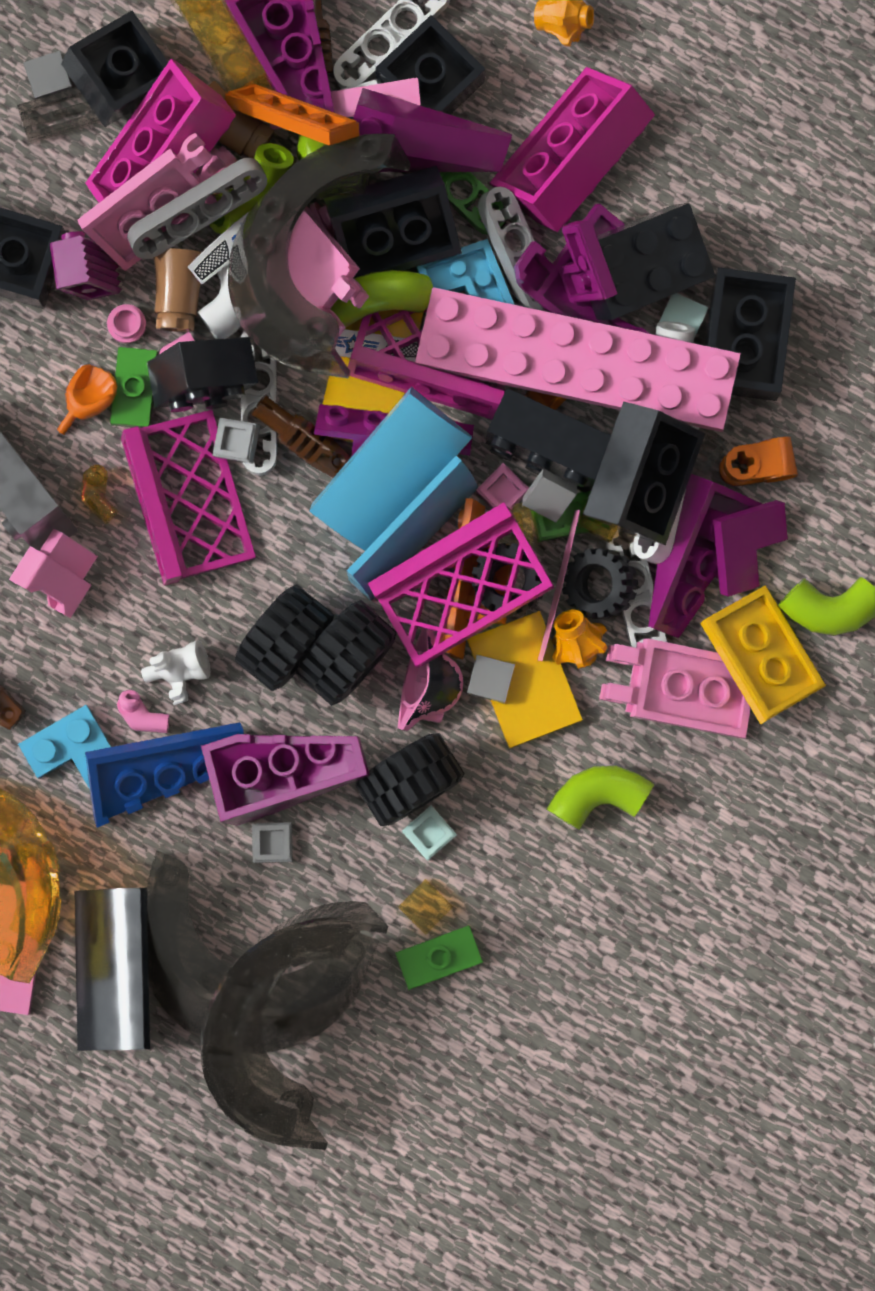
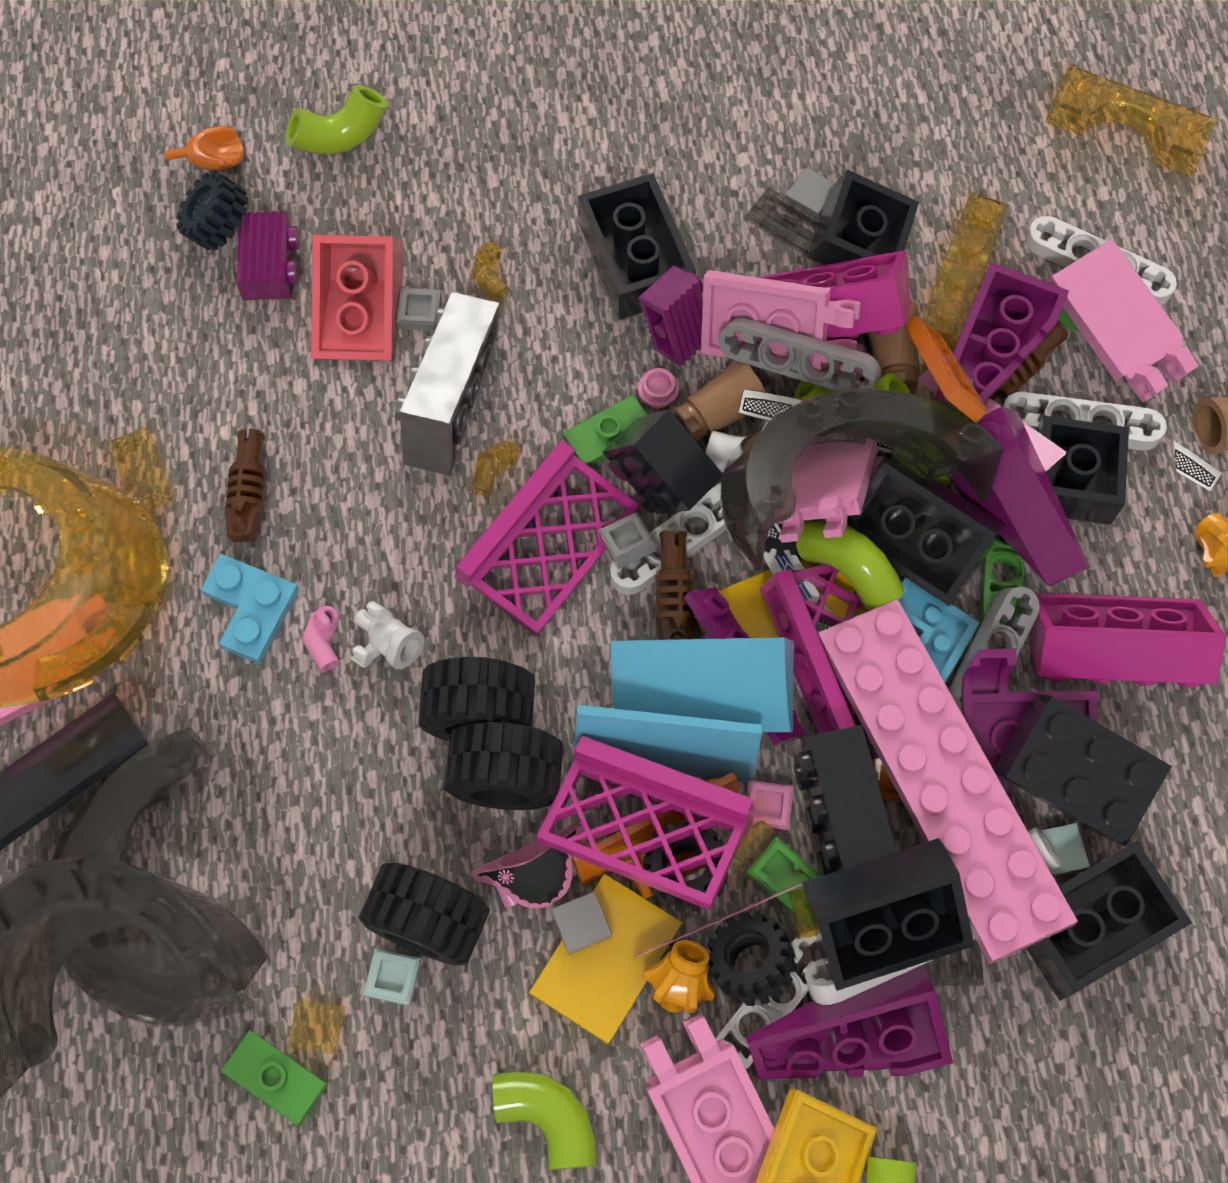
camera: 55 degrees right, 15 degrees down
(56, 572) = (396, 474): bright pink piece -> none
(88, 394) = (572, 399): orange piece -> none
(144, 770) = (267, 672): blue wing -> none
(272, 773) = (343, 785): magenta wedge -> none
(272, 842) = (282, 837): light grey tile -> none
(549, 495) = (795, 844): light grey tile -> none
(588, 274) = (1027, 721): magenta tile -> none
(738, 540) = (898, 1065): magenta tile -> none
(766, 462) = (995, 1034): orange piece -> none

